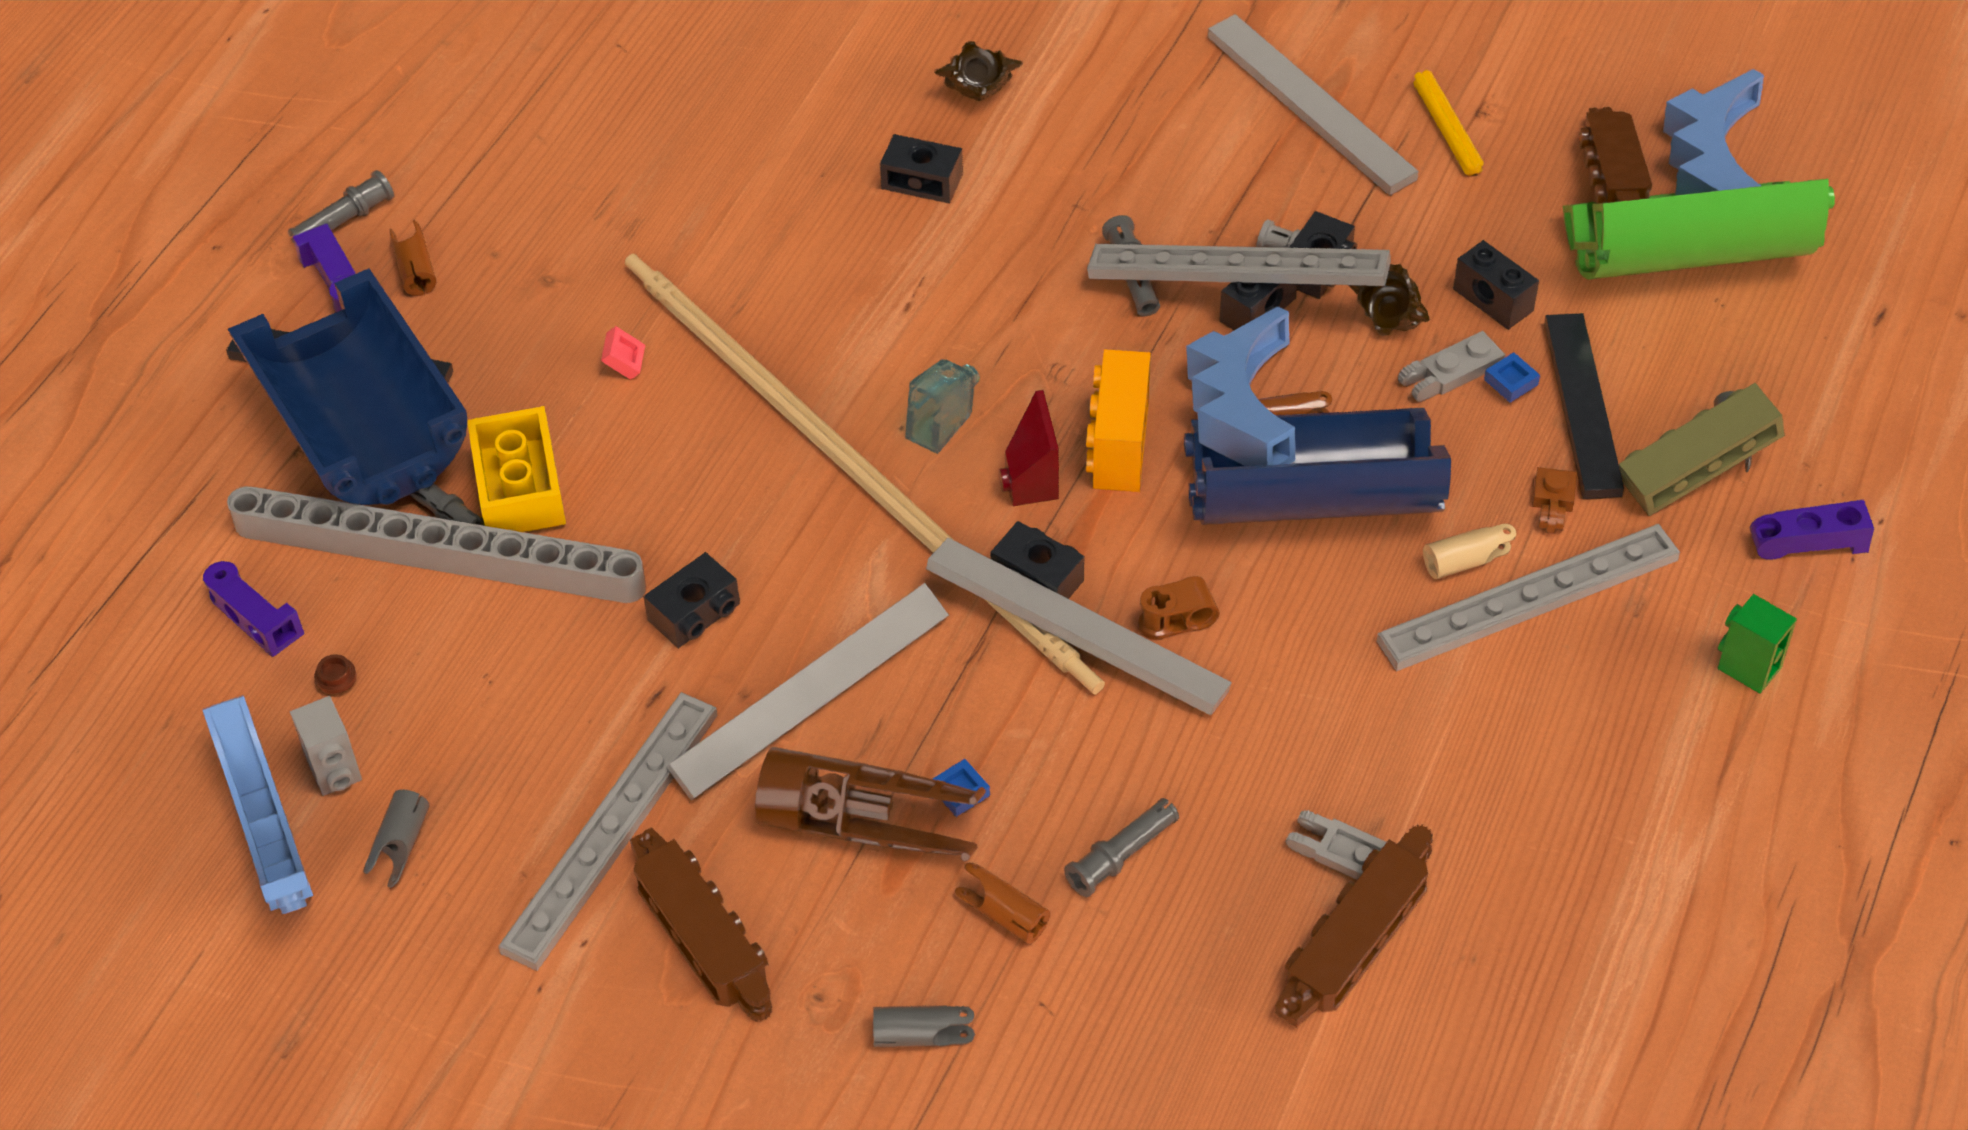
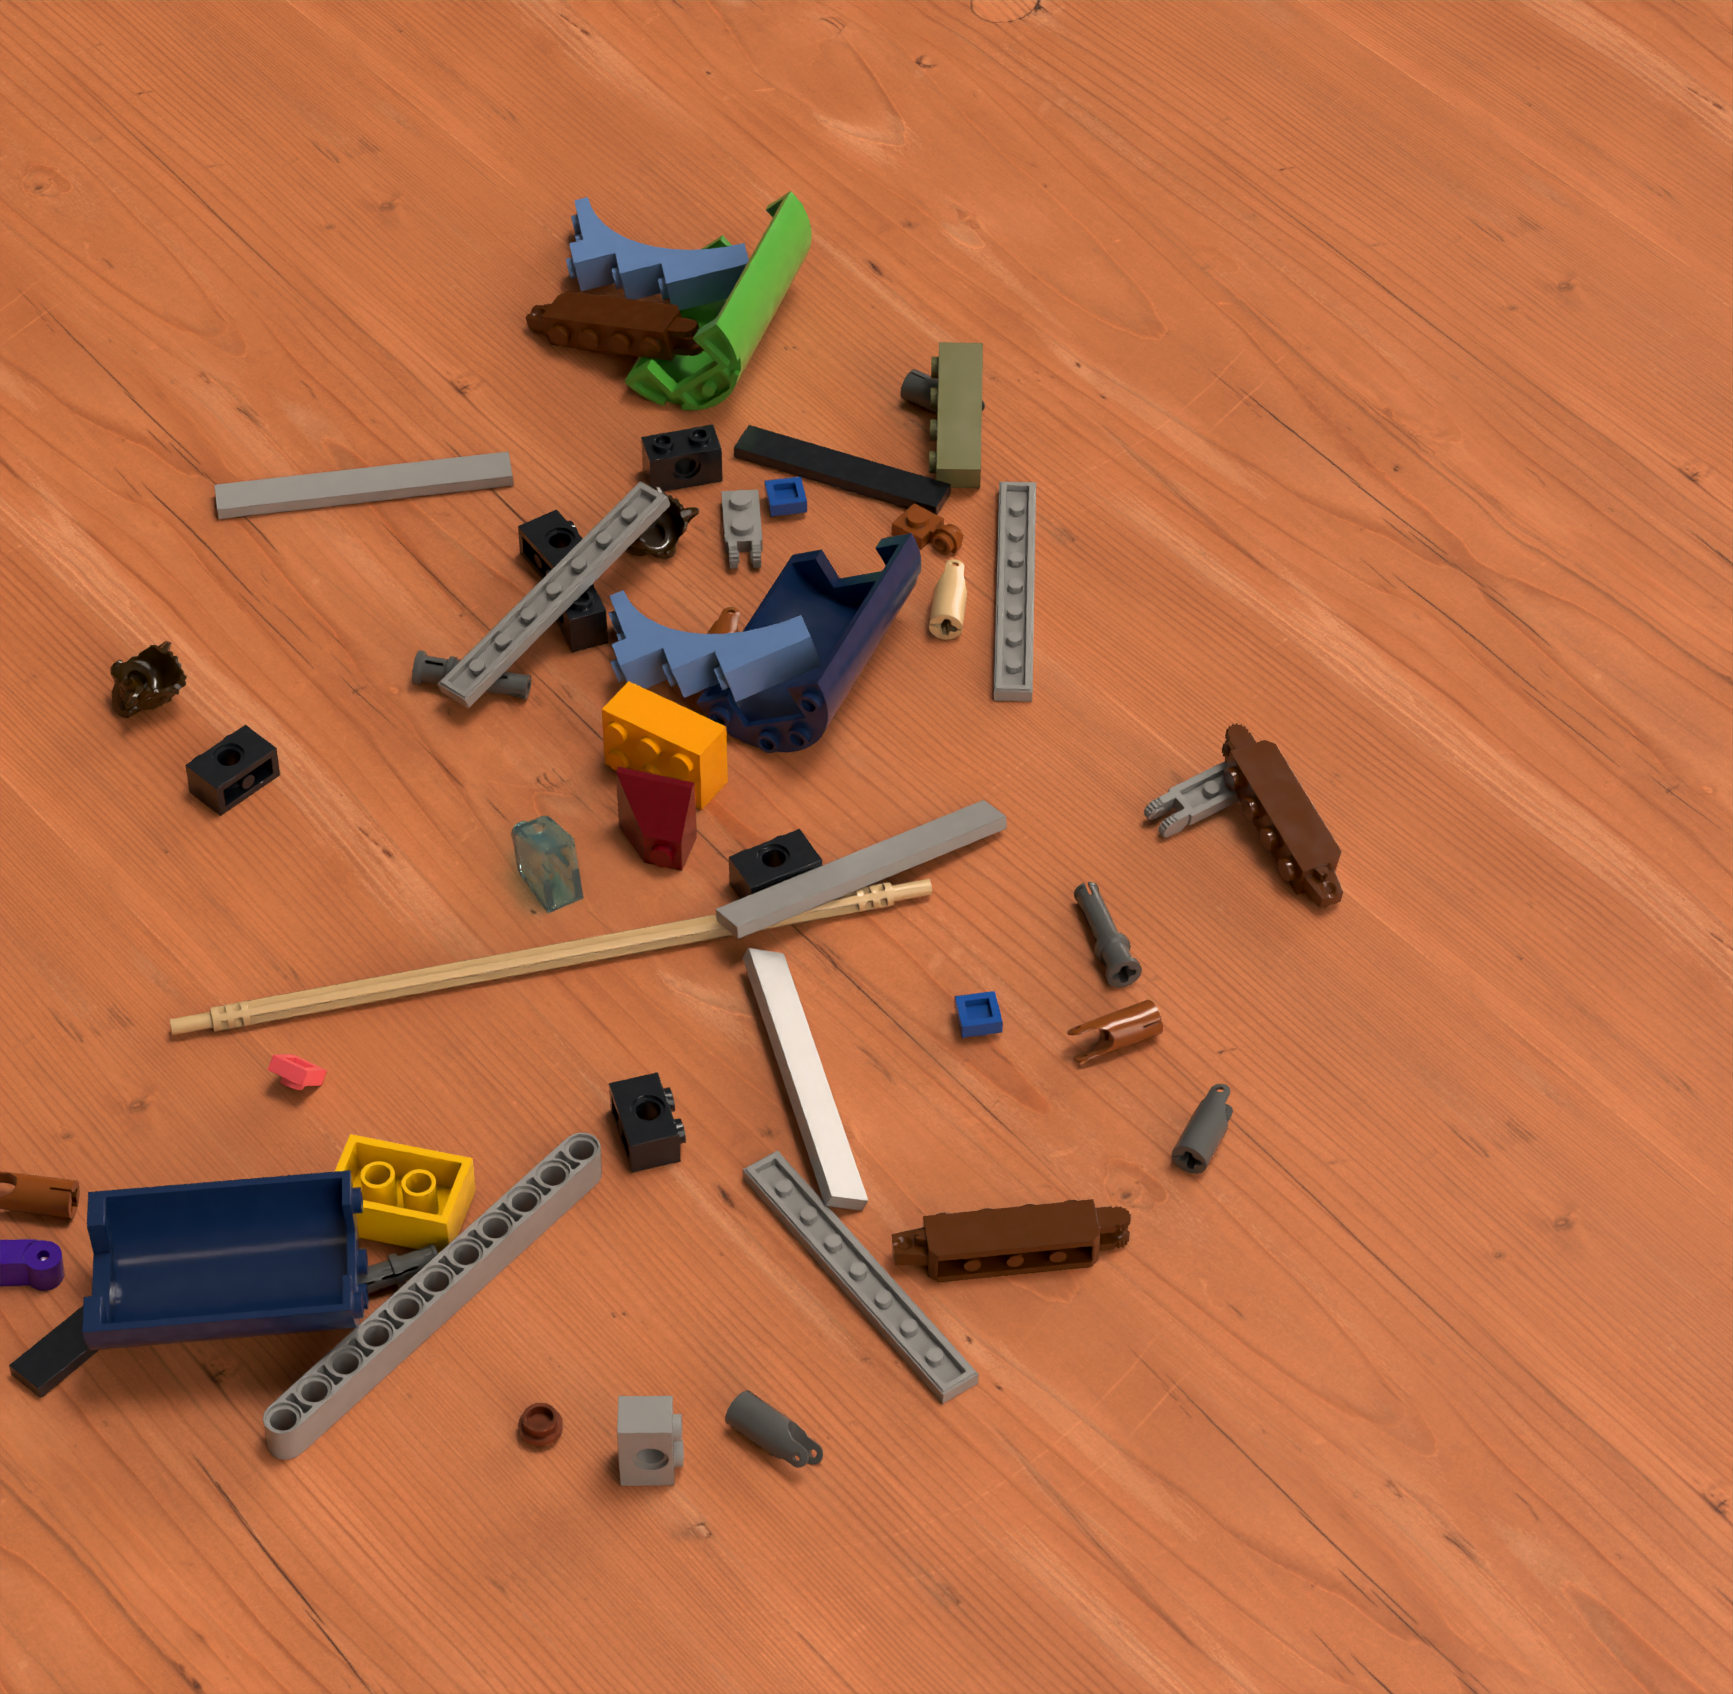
camera: 65 degrees left, 5 degrees down
(258, 805) = (704, 1520): medium blue arch -> none
(266, 625) = (408, 1468): dark purple leg -> none
(792, 790) = (928, 1113): reddish brown piece -> none
(1180, 606) = (885, 801): dark orange piece -> none
(1275, 236) = (520, 570): light grey bush -> none
(1448, 123) = (463, 410): yellow axle -> none
(1755, 642) = (1168, 473): green brick -> none
(1813, 530) = (1072, 398): dark purple leg -> none

